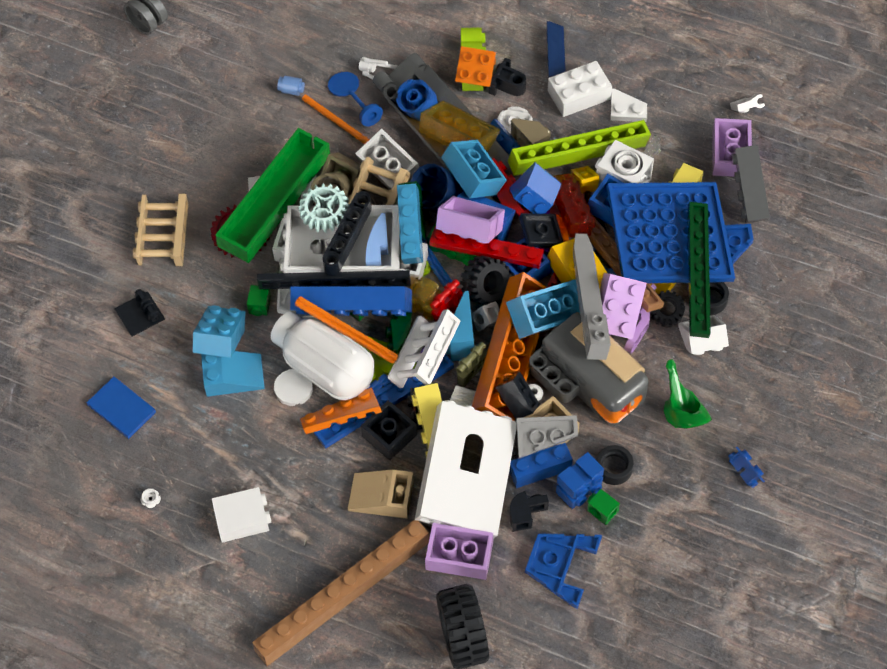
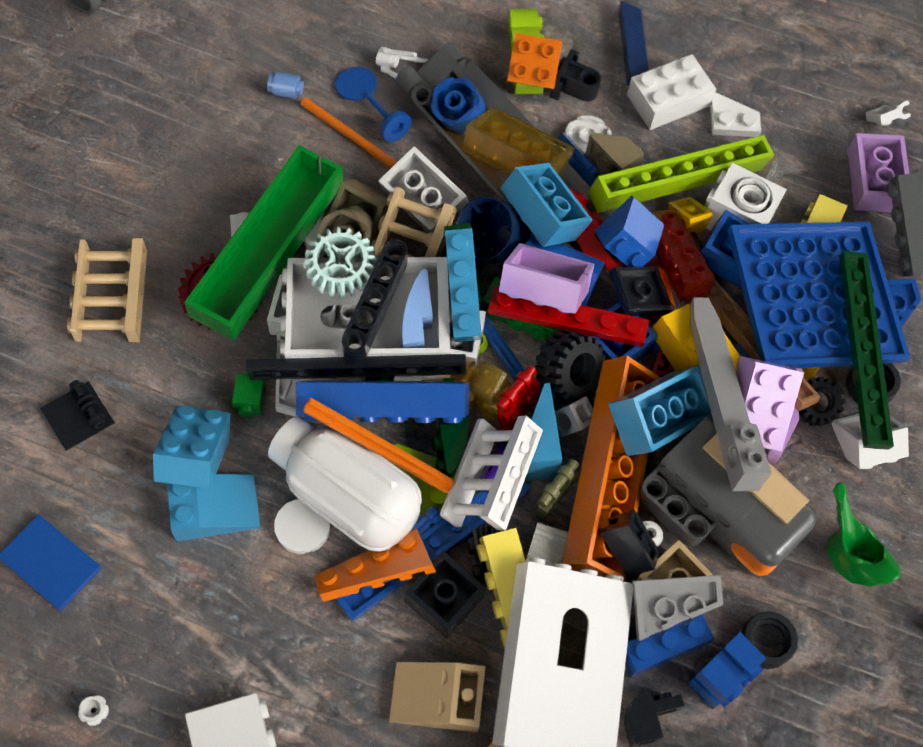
camera: 10 degrees left, 5 degrees up
(602, 506) = (759, 707): green brick -> none

